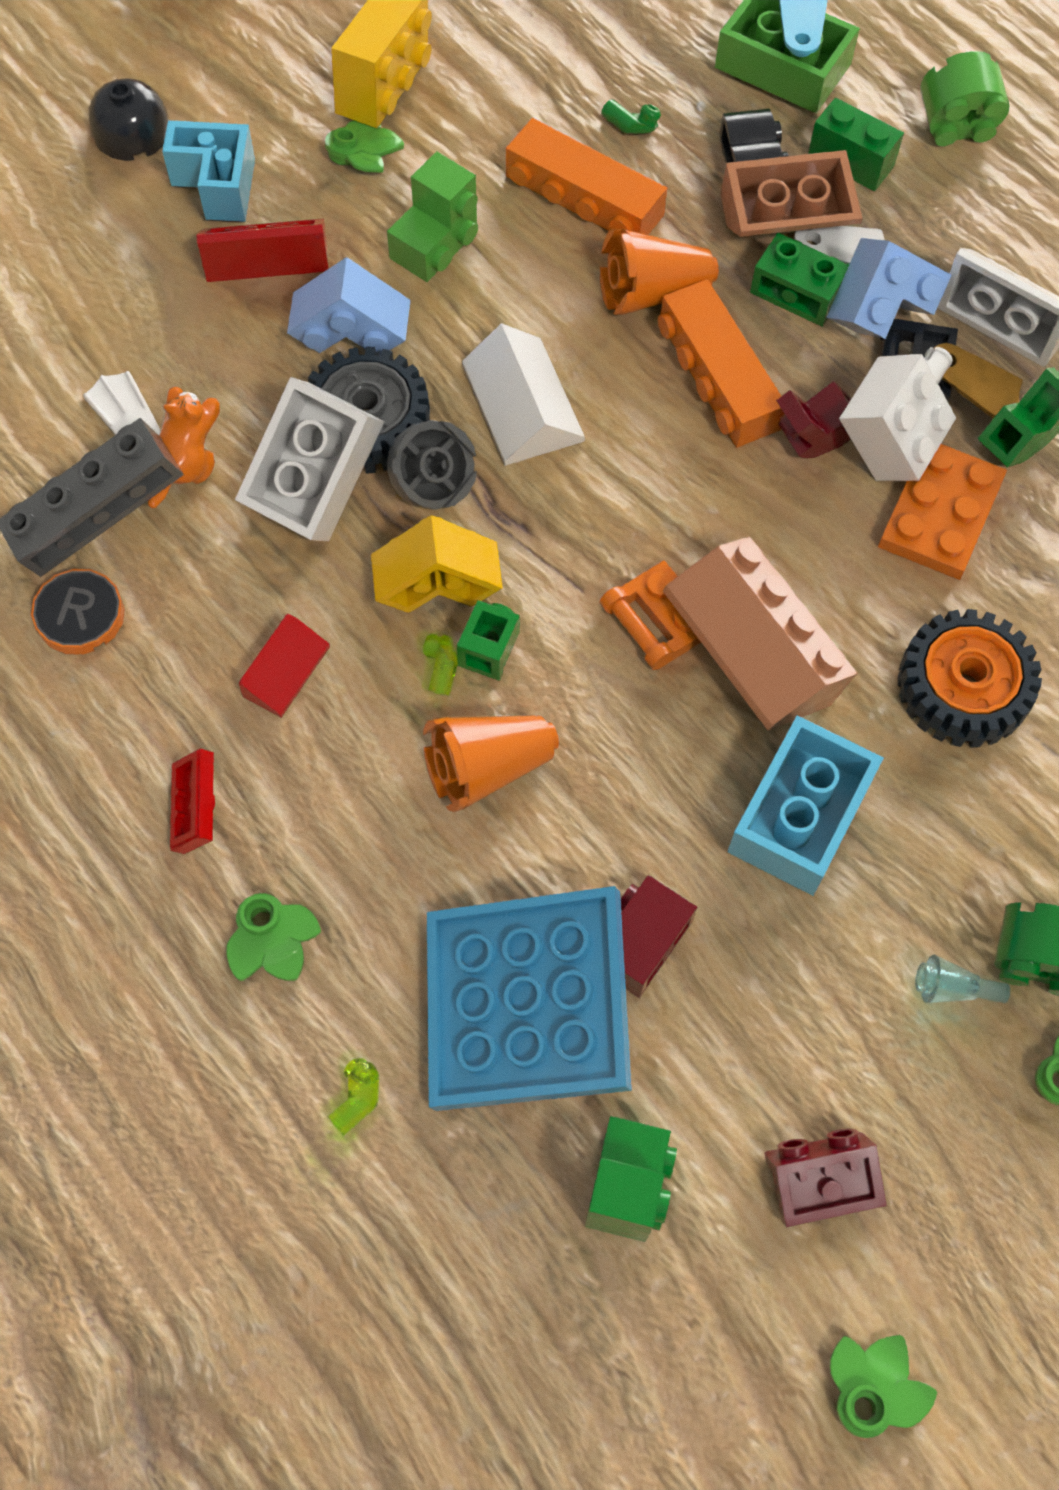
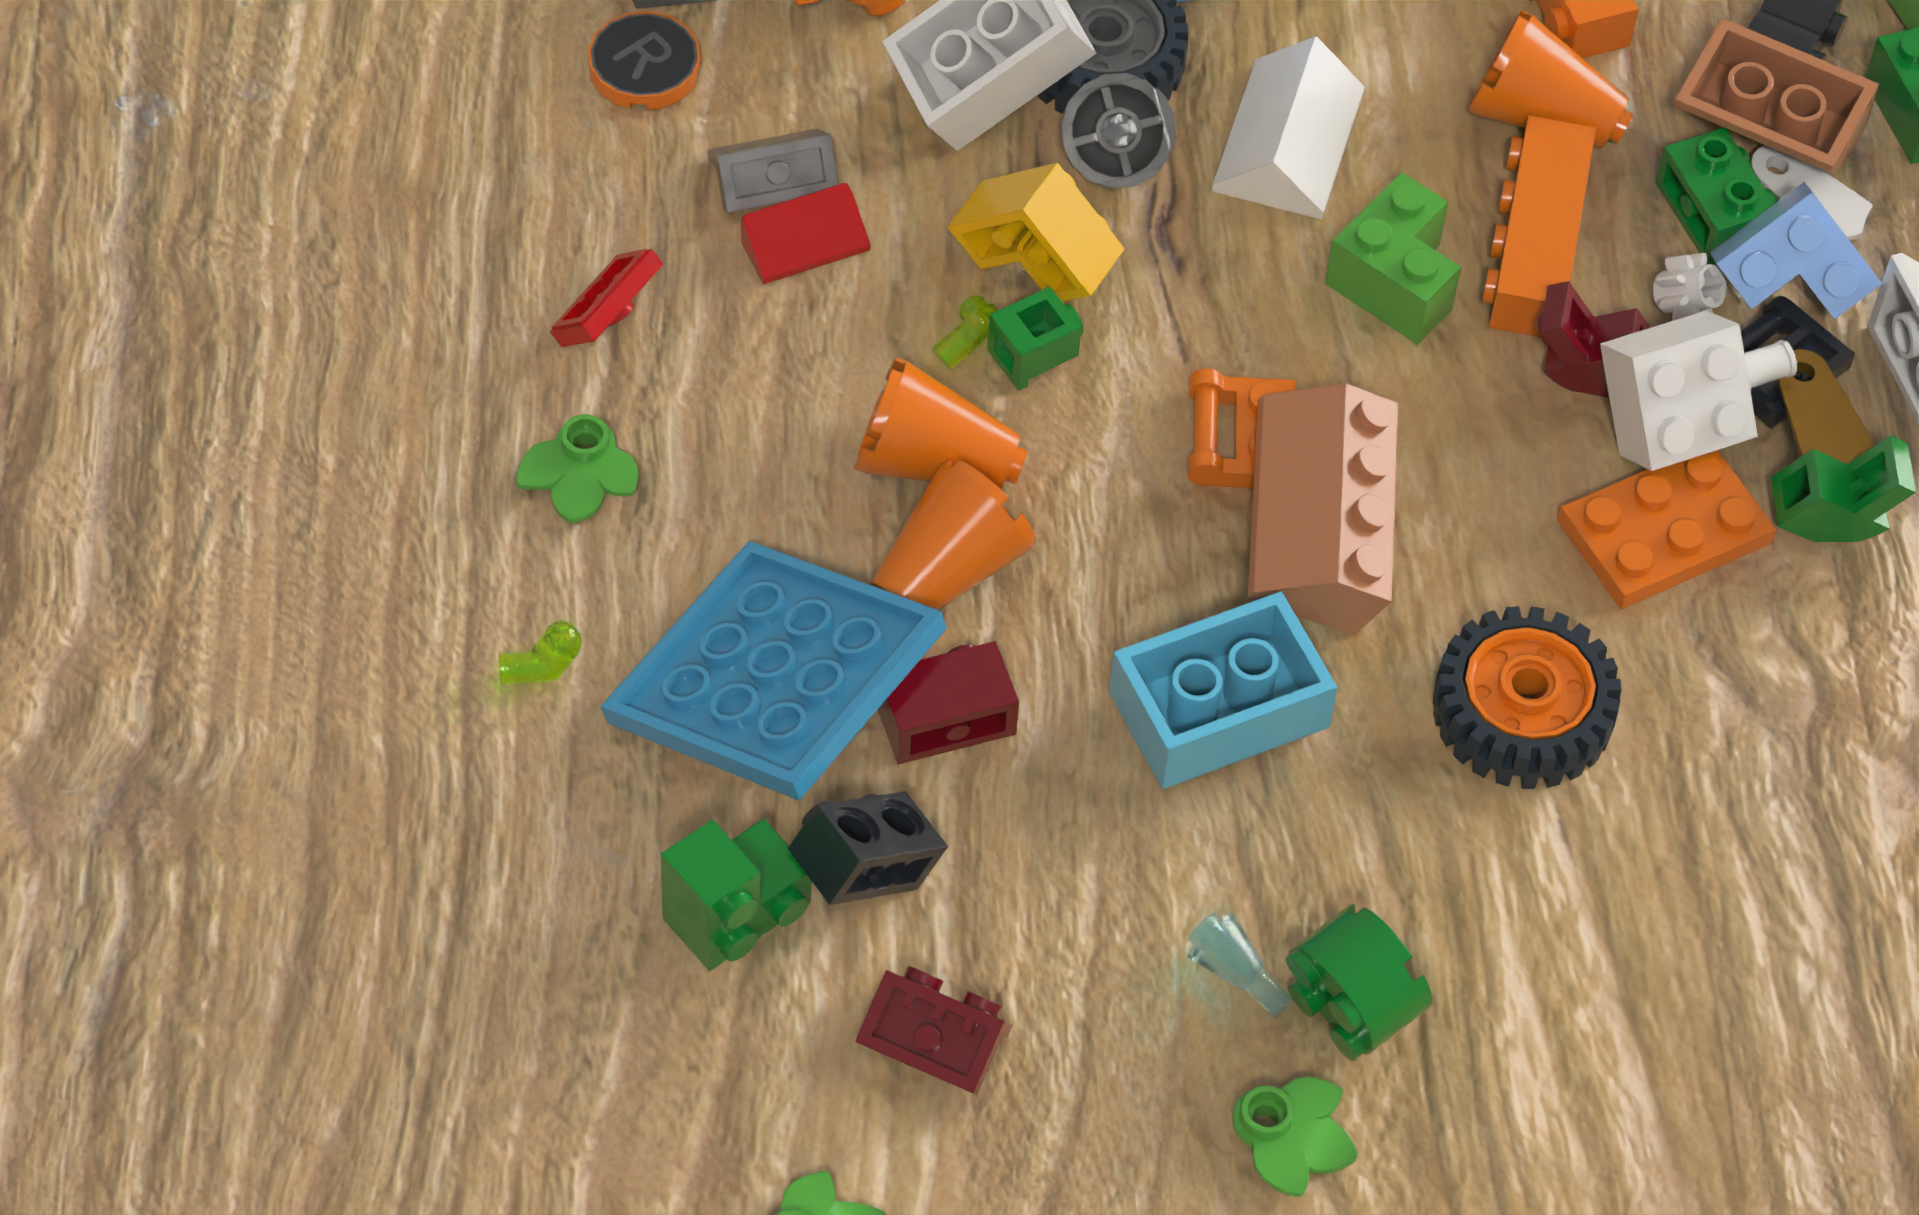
camera: 35 degrees right, 10 degrees down
(226, 631) = (774, 169): none -> flat silver panel
(559, 825) = (953, 539): none -> orange cone
(660, 447) = (1391, 260): none -> bright green brick
(690, 1087) = (867, 847): none -> black brick
(837, 348) = (1689, 286): none -> white gear

